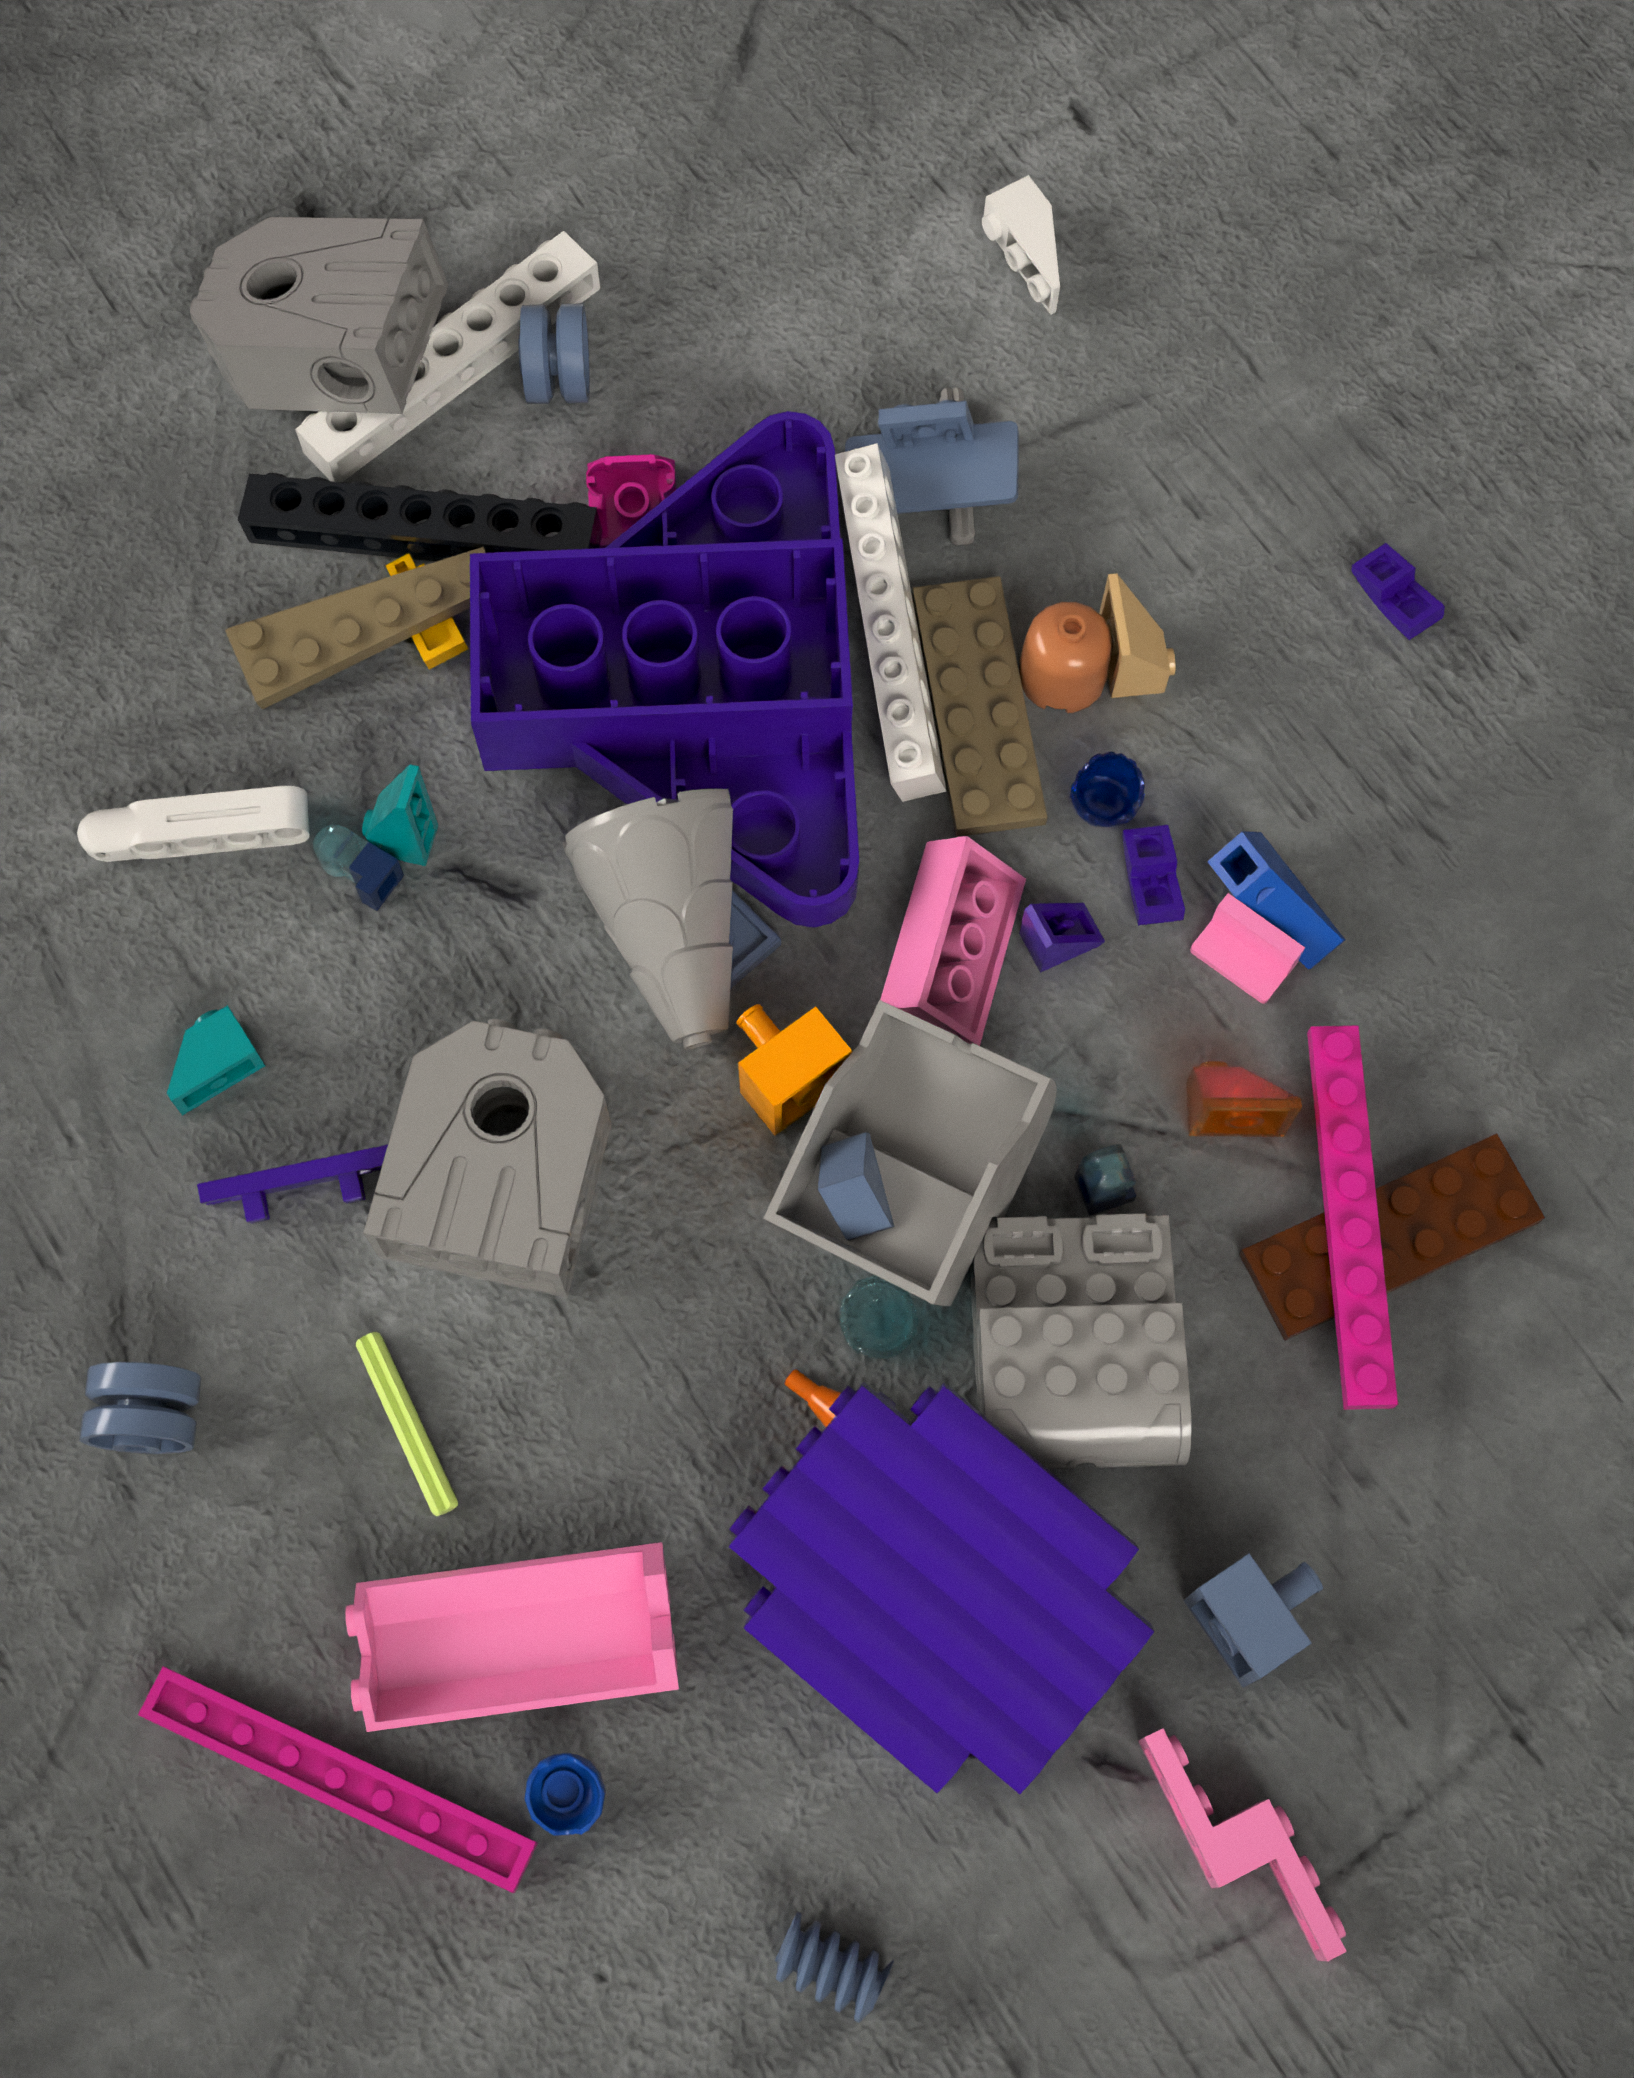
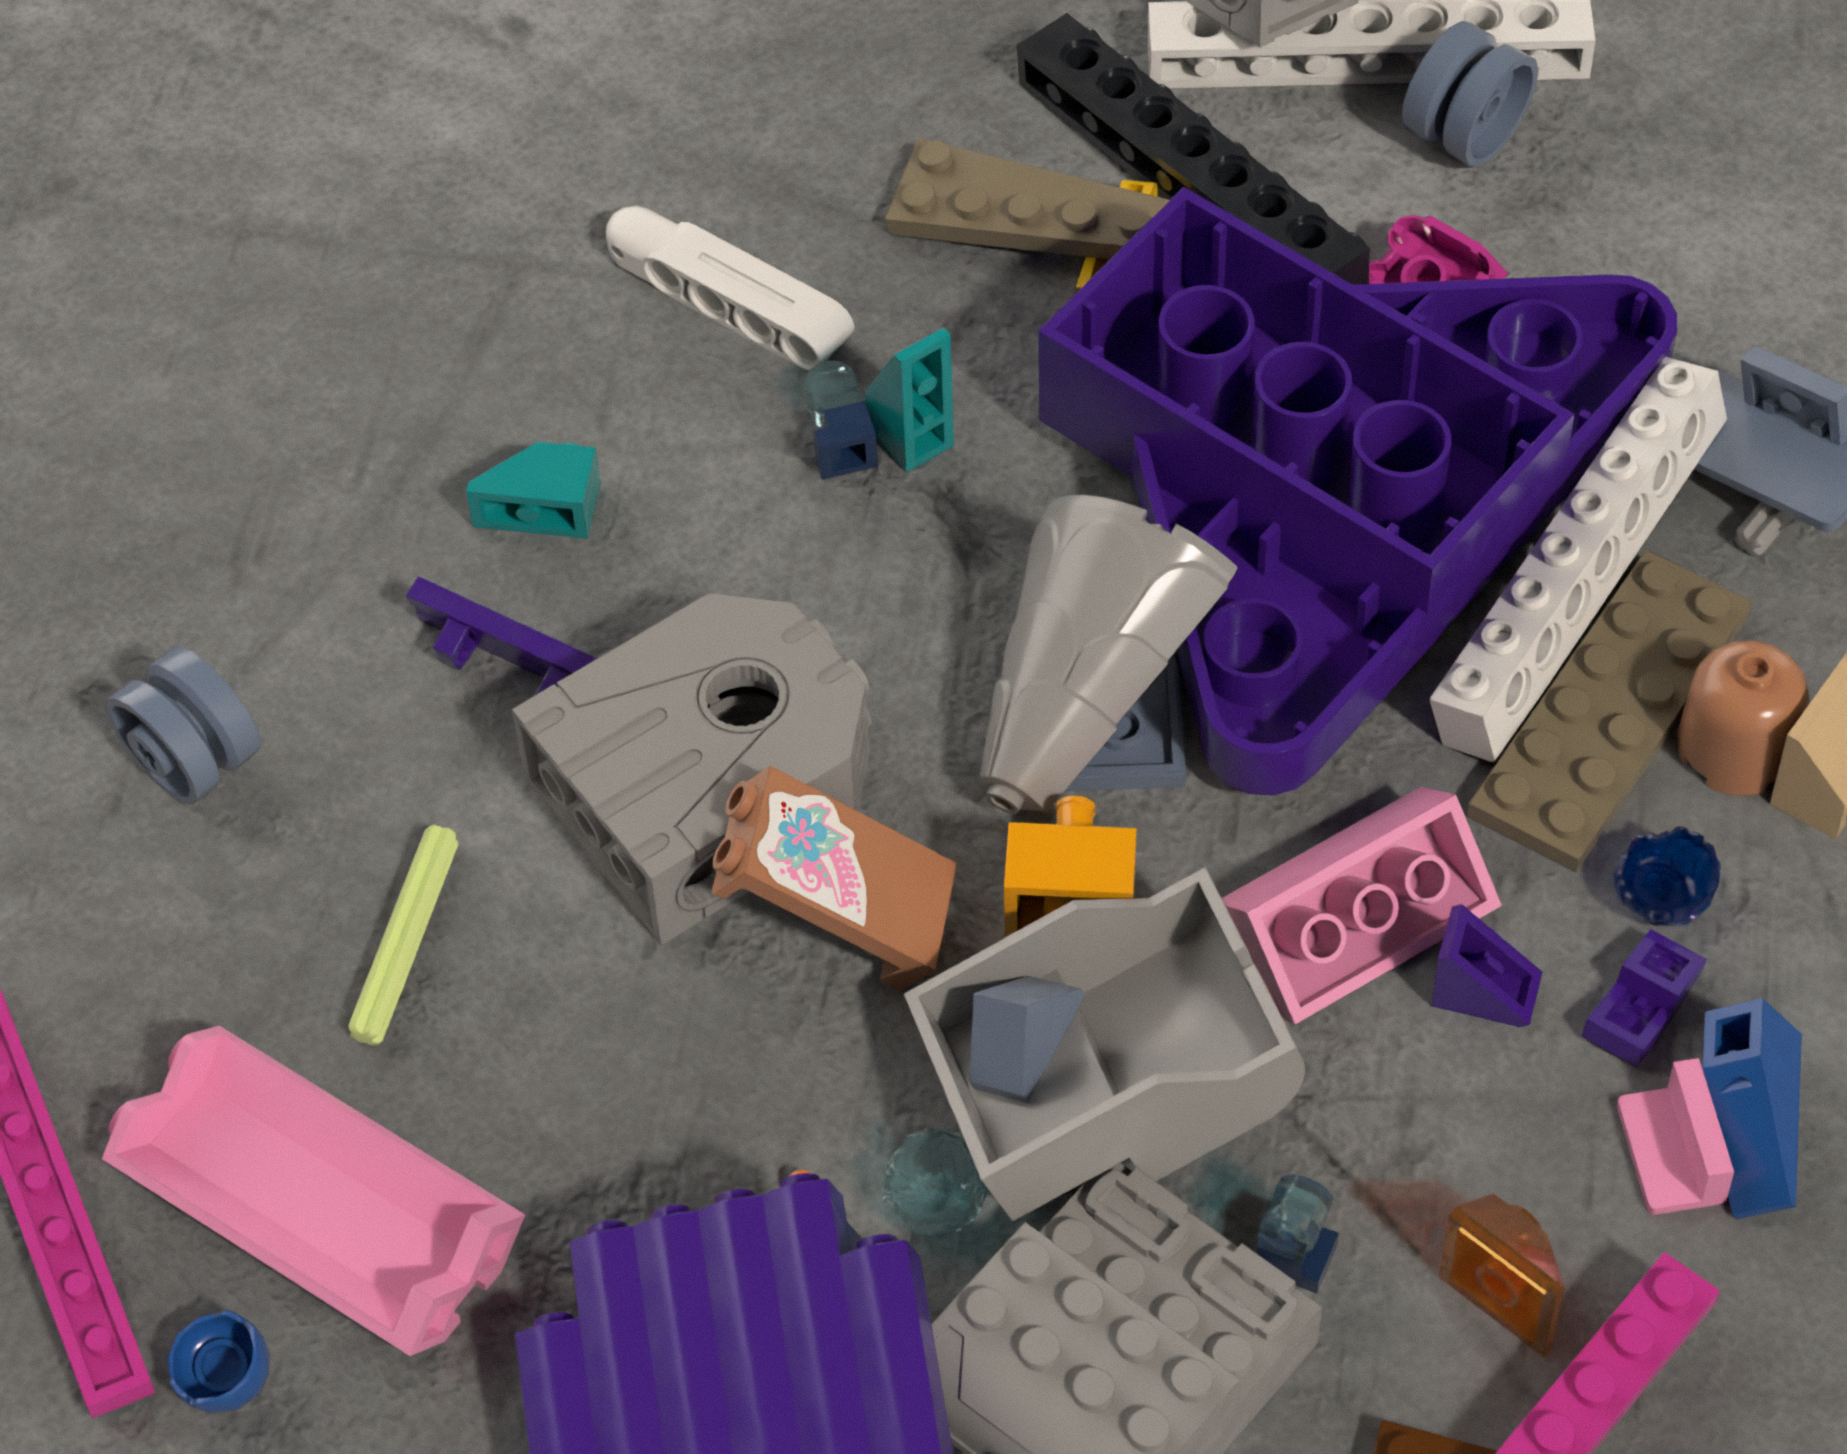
camera: 45 degrees right, 15 degrees down
(656, 1177) = (837, 872): none -> nougat panel

